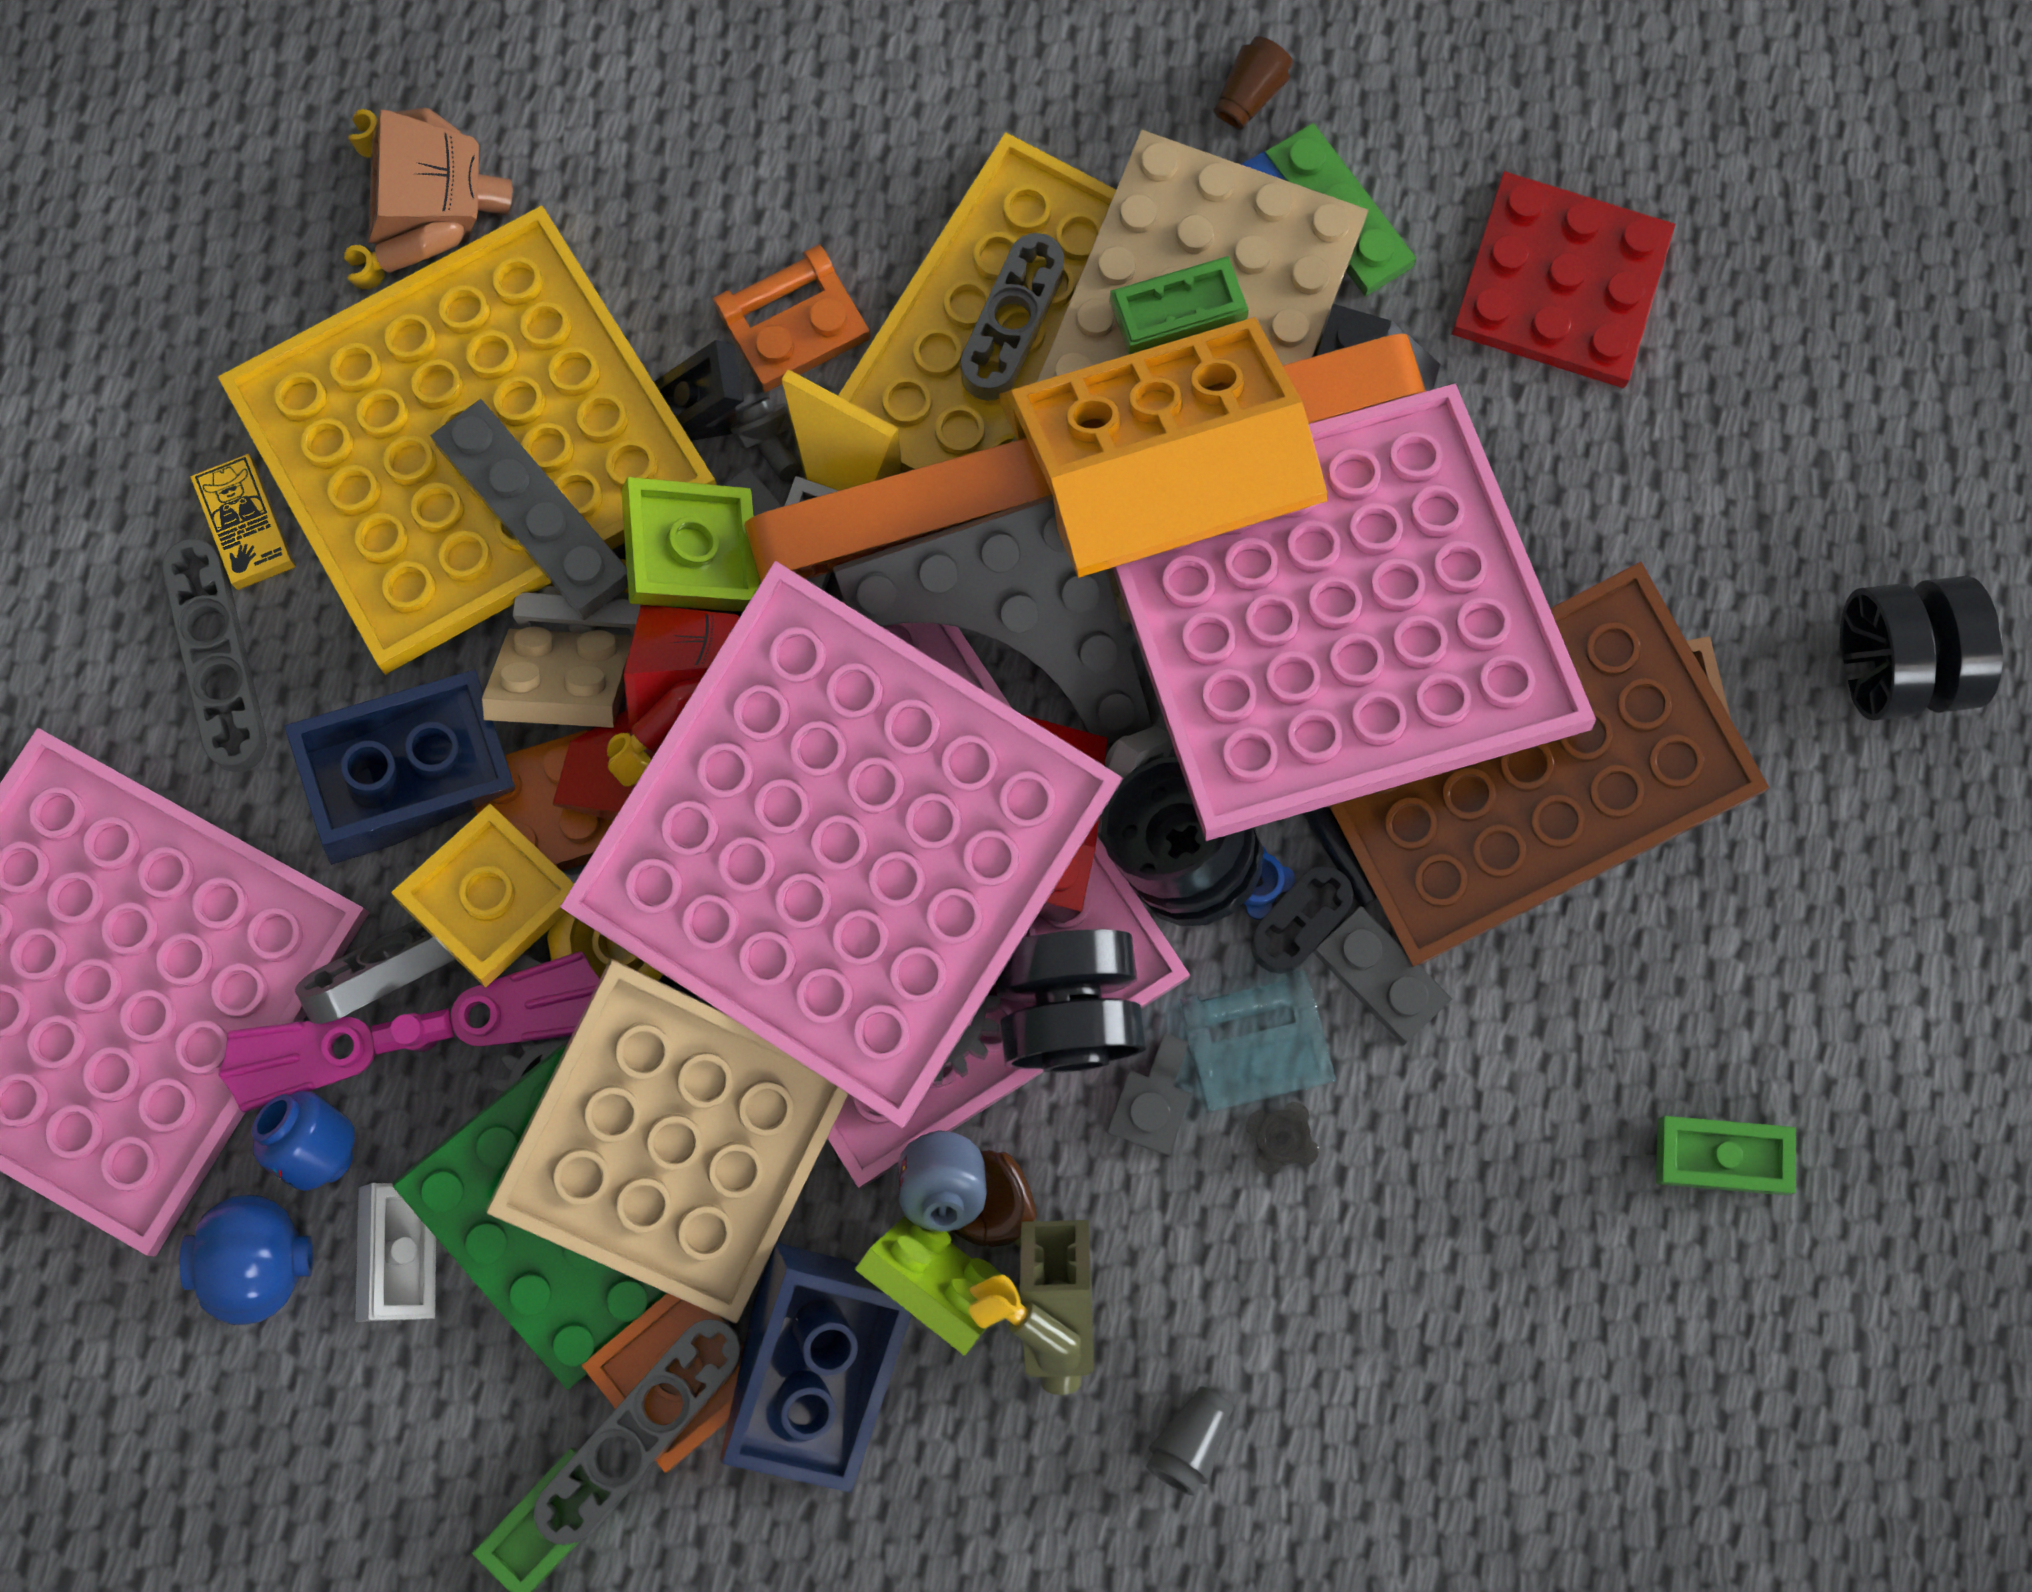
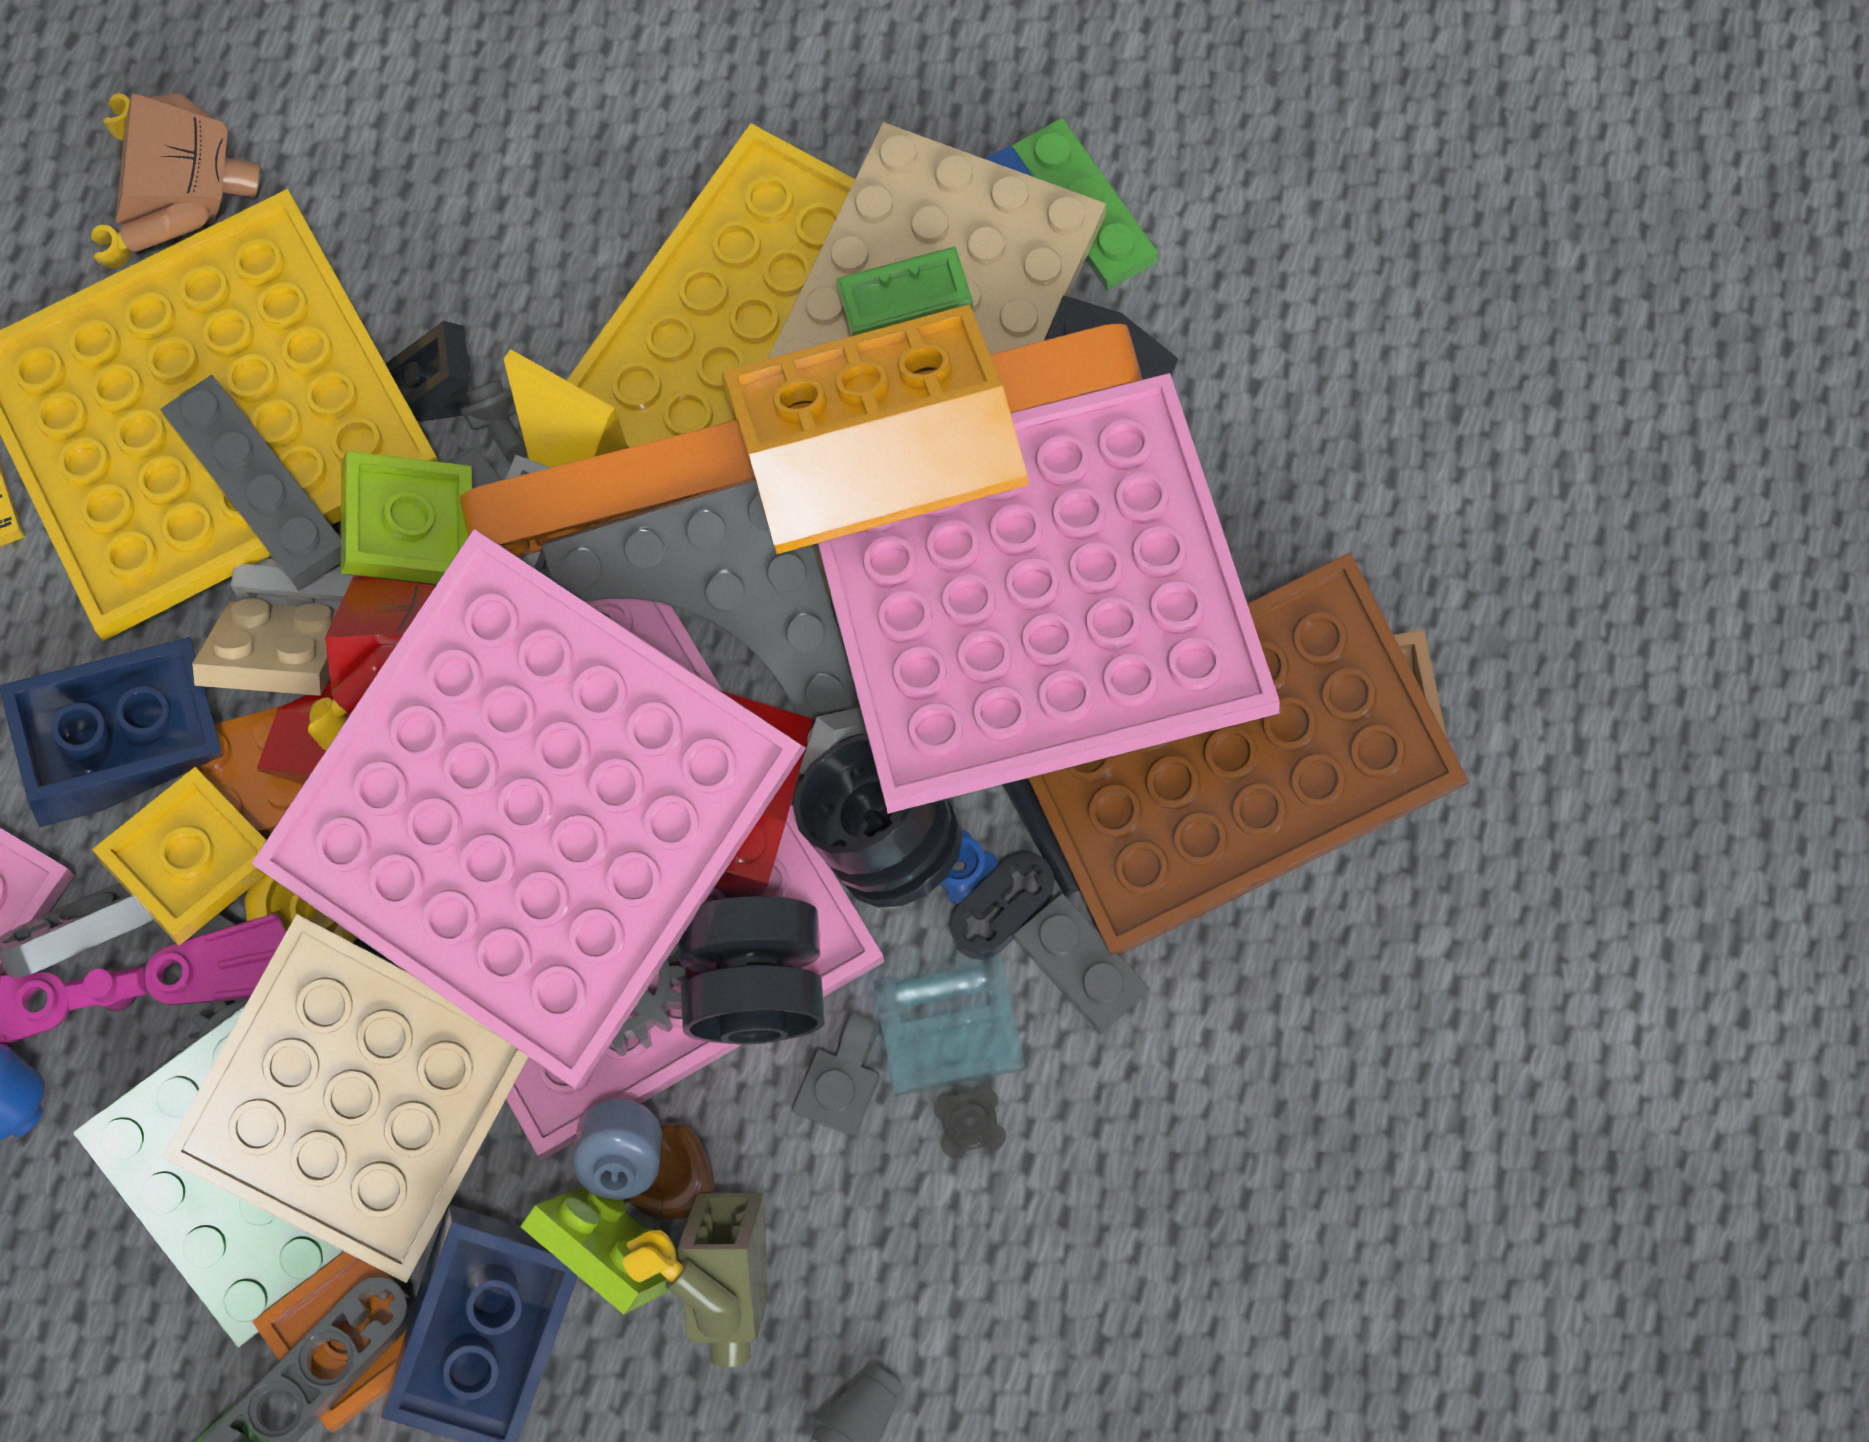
camera: 10 degrees right, 5 degrees down
(393, 1258) = (76, 1214): white slope -> none
(801, 334) = (537, 318): orange plate -> none
(1010, 290) = (741, 277): dark grey beam -> none
(1253, 80) = (1003, 76): reddish brown cone -> none
(1564, 279) = (1308, 276): red plate -> none
(1726, 1155) = (1420, 1152): bright green plate -> none
(1928, 645) = (1643, 646): black wheel -> none

